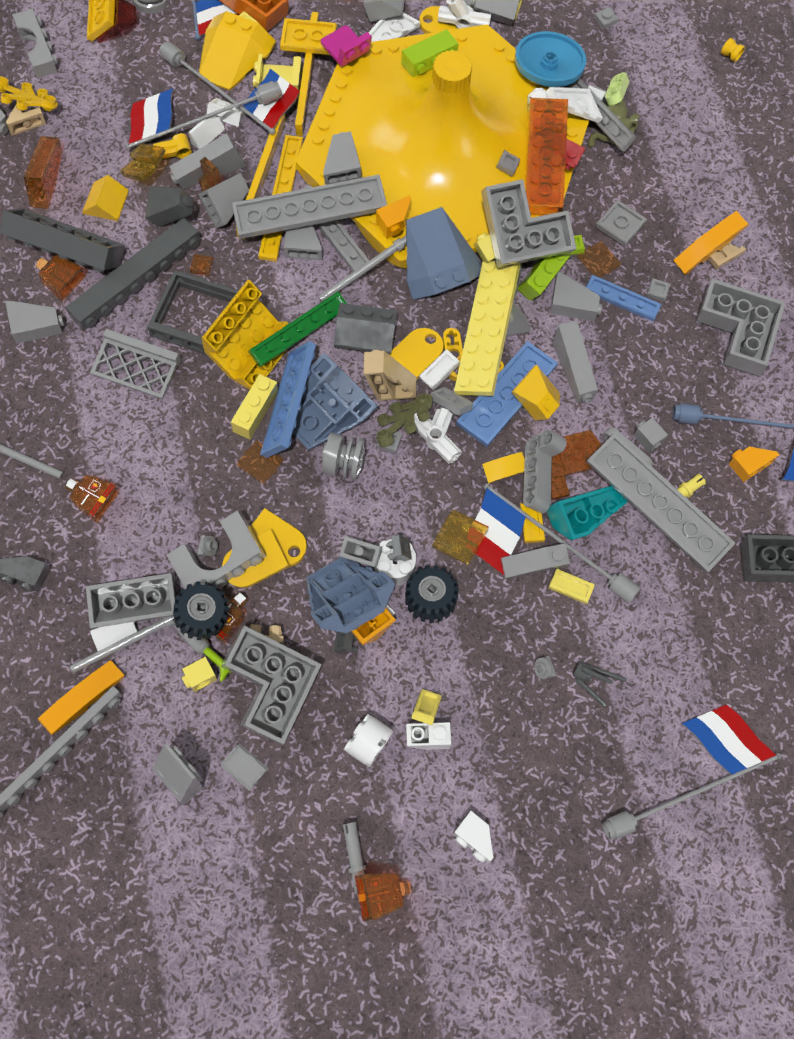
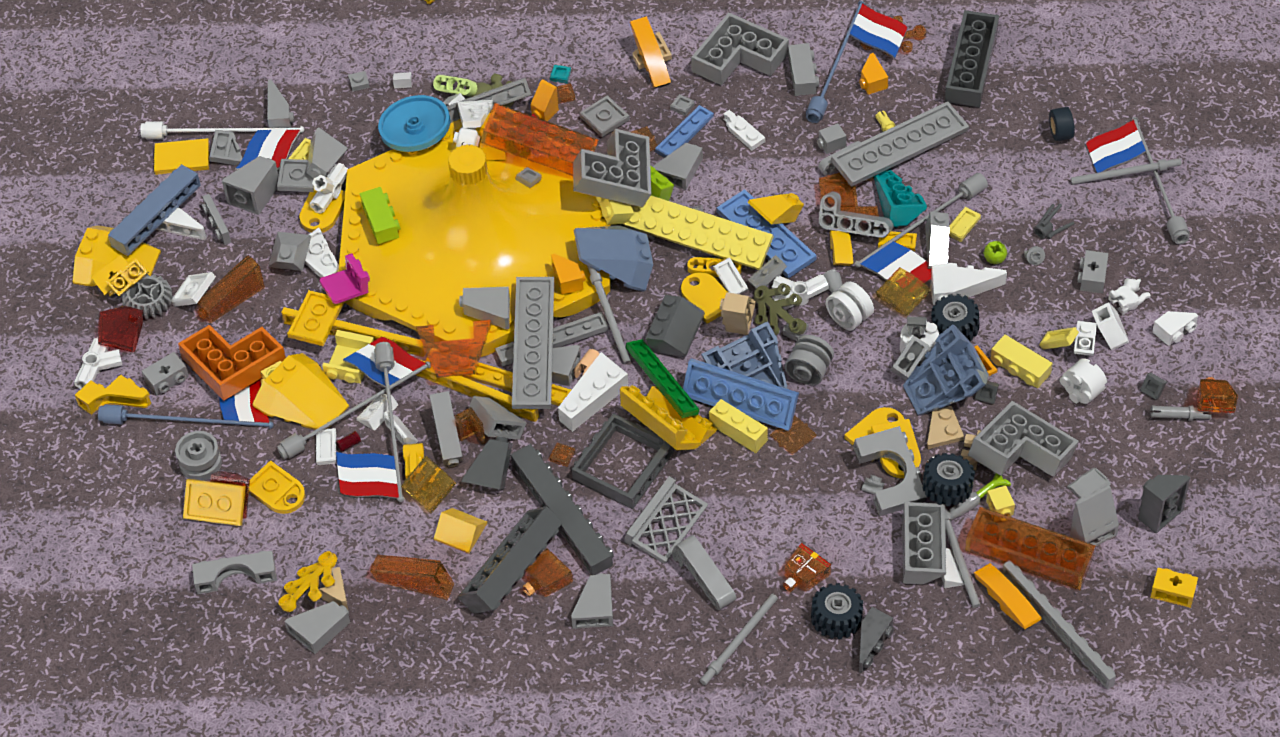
camera: 70 degrees left, 15 degrees down
(42, 541) = (836, 611): none -> black wheel
(73, 404) = (710, 579): none -> light grey beam
(110, 863) = (1174, 587): none -> yellow brick
(131, 54) = (275, 487): none -> yellow tile
(139, 712) = (1030, 548): none -> clear orange brick
(181, 81) = (326, 447): none -> white tile
(190, 95) = (349, 440): none -> dark red piece
(209, 844) = (1163, 500): none -> dark grey slope
(273, 273) = (592, 392): none -> white wedge
(284, 150) = (454, 356): none -> clear orange wing
(289, 605) = (944, 428): none -> tan wing
(306, 265) = (585, 362): none -> light nougat piece
(386, 821) = (1153, 386): none -> dark grey tile
(390, 671) = (1021, 361): none -> light yellow brick
(421, 483) = (849, 306): none -> white wheel
(457, 468) = (833, 279): none -> light grey cone
(457, 762) = (1110, 326): none -> white slope
(474, 582) = (966, 281): none -> white wedge
(511, 773) = (1127, 297): none -> white animal
(543, 622) = (995, 252): none -> lime piece
(545, 740) = (1094, 271): none -> light grey brick
(575, 361) = (752, 175): light grey slope -> none
(617, 50) = (402, 80): none -> white slope
(617, 165) = (545, 101): none -> light orange slope
(639, 351) = (743, 130): none -> white hinge
(641, 184) = (565, 93): none -> clear orange tile
(666, 177) = (560, 74): none -> teal tile
(709, 793) = (1161, 165): none -> light grey bar
(738, 391) = (803, 69): none -> light grey brick
(738, 670) = (1061, 123): none -> black wheel

